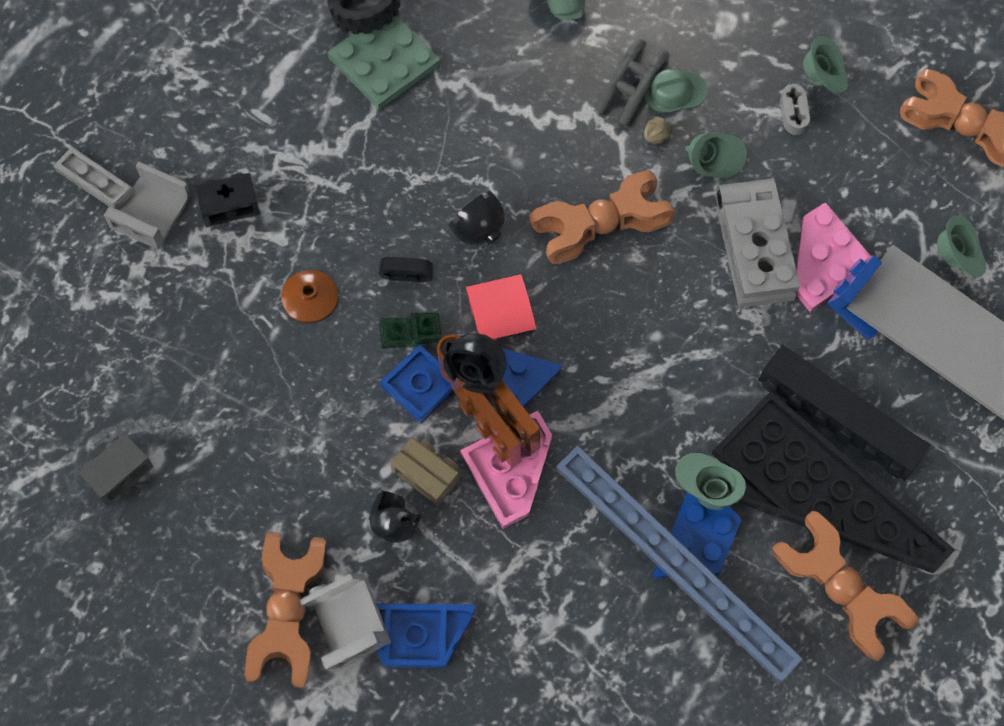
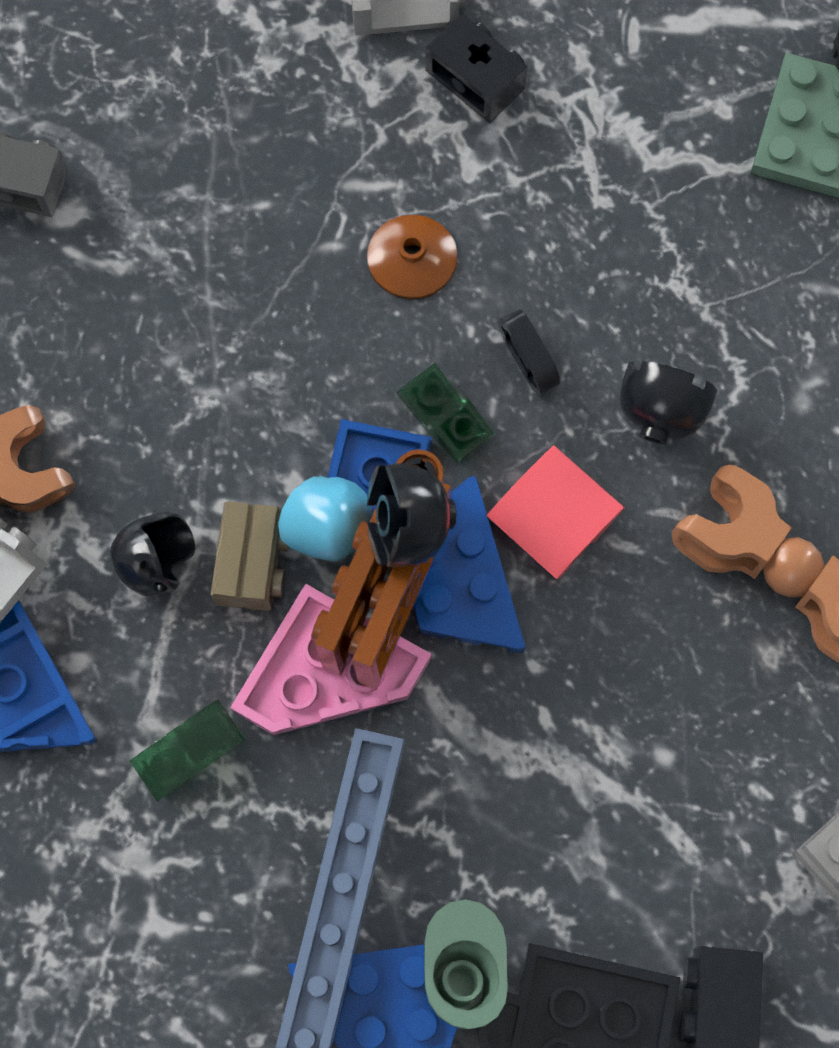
camera: 60 degrees right, 5 degrees up
(436, 415) = (324, 517): none -> medium azure piece
(511, 560) = (187, 750): none -> clear green slope

